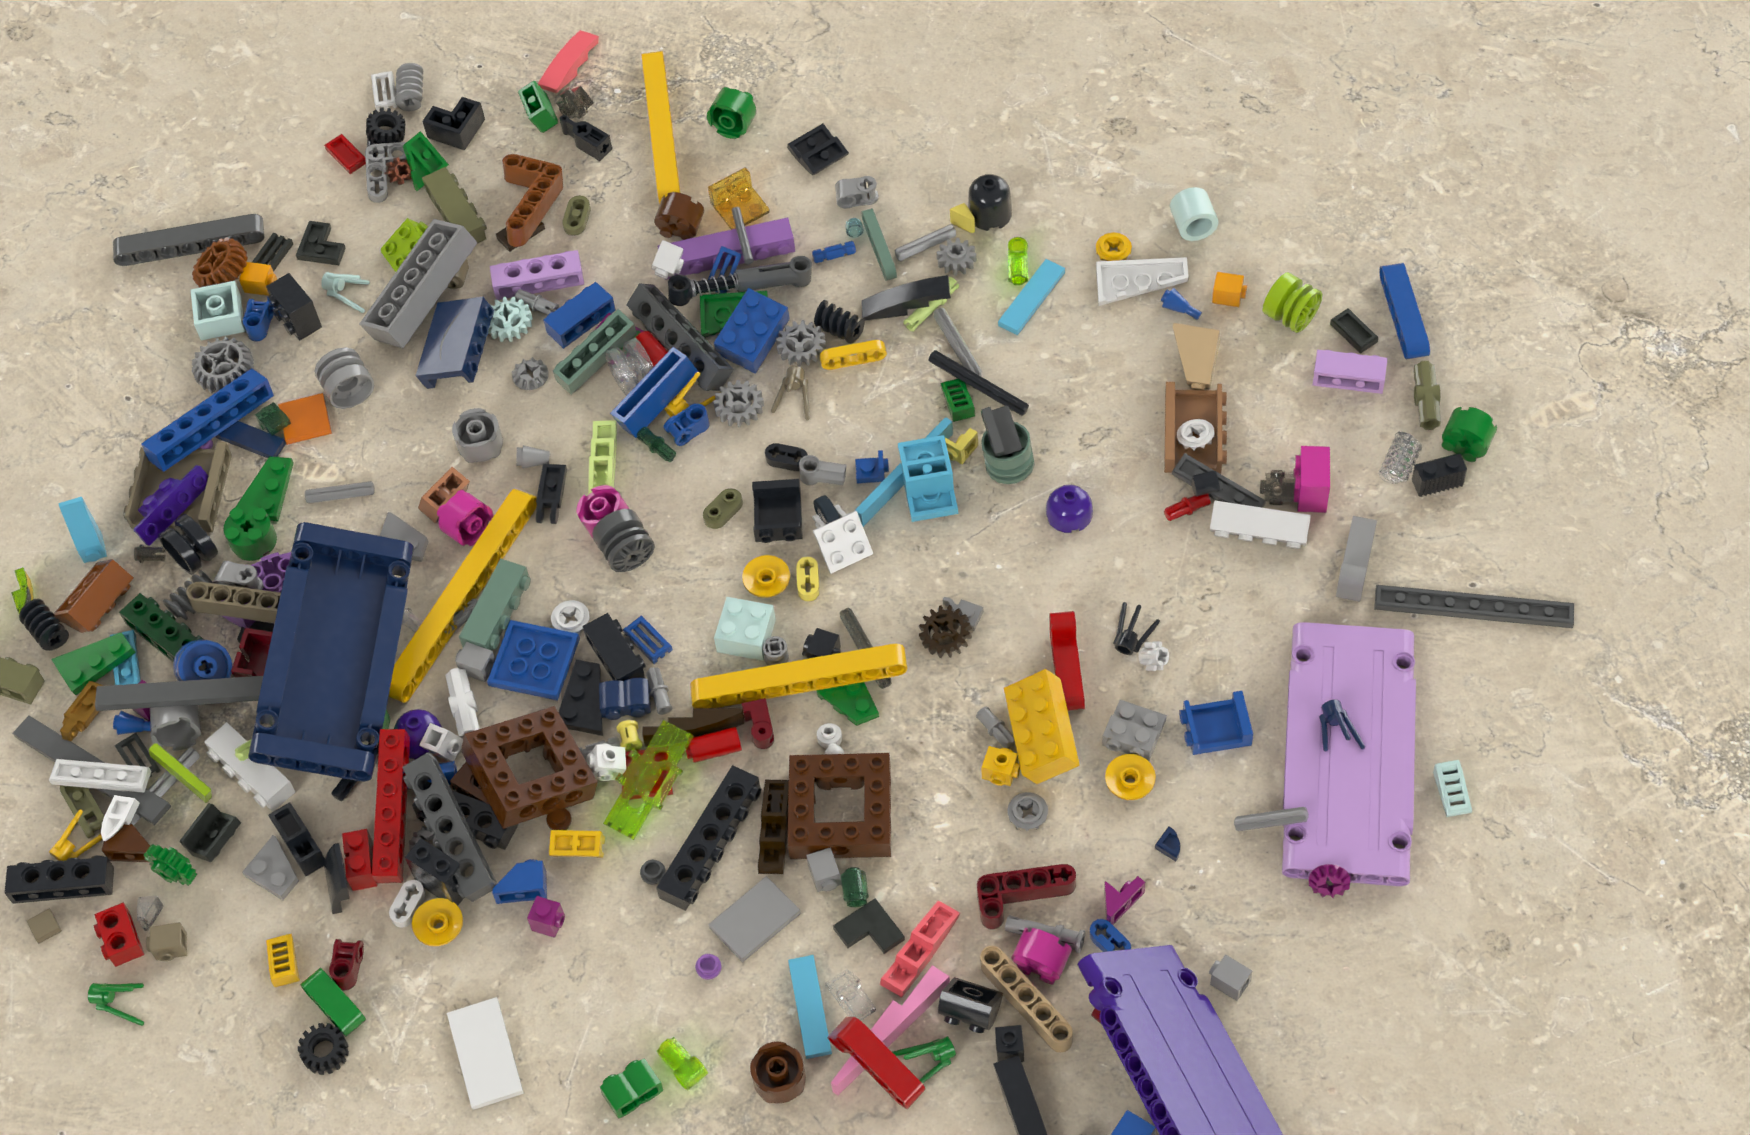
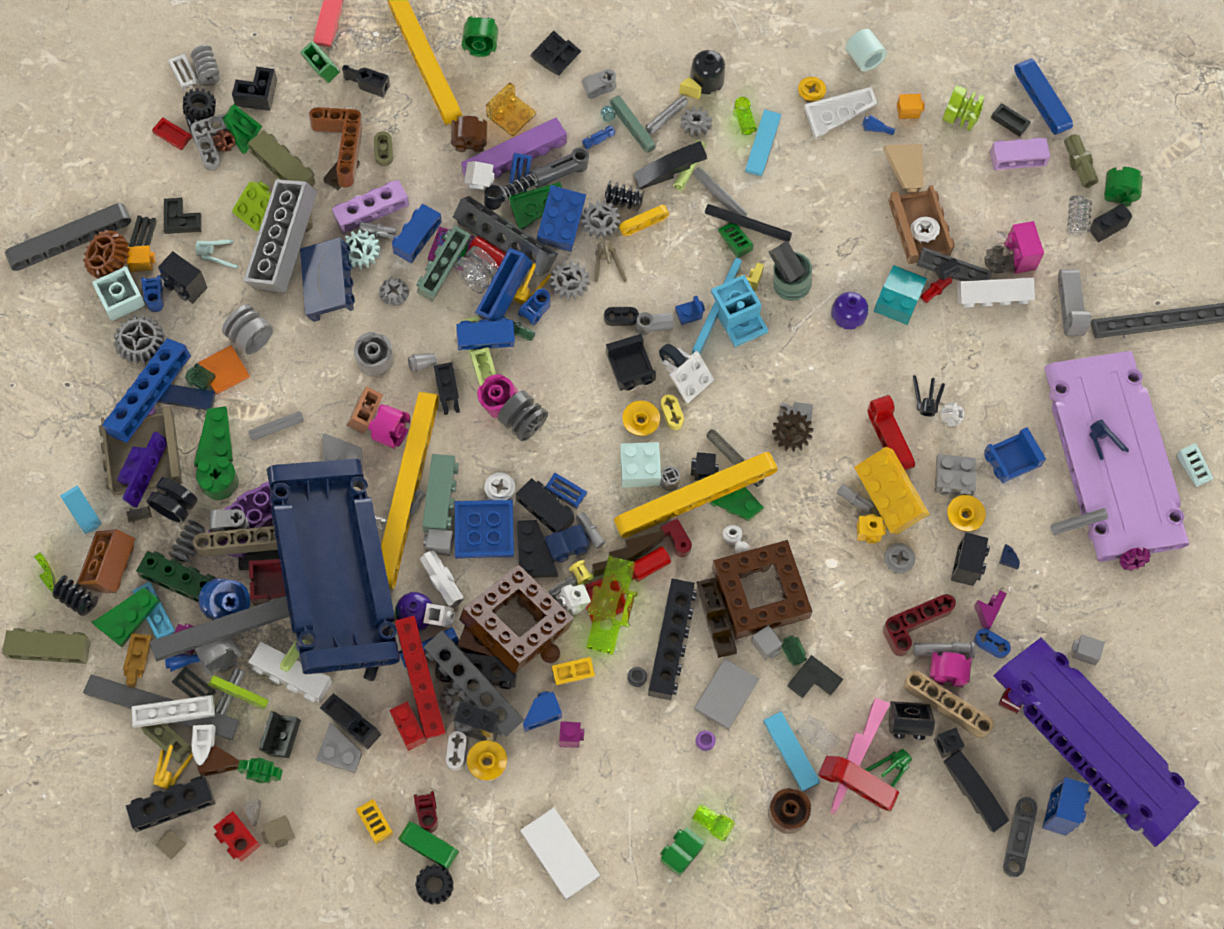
camera: 25 degrees left, 10 degrees up
(105, 993) = (242, 887): green plant -> none
(336, 878) = (396, 747): black slope -> none
(574, 102) = (348, 52): clear smoke brick -> none
(612, 439) = (485, 334): none -> blue brick
(725, 508) = (586, 368): olive plate -> none
(742, 235) = (531, 147): dark grey bar -> none
(920, 948) = (857, 685): coral slope -> none
(1112, 830) = (970, 559): none -> black brick
(1138, 504) = (900, 294): none -> teal slope

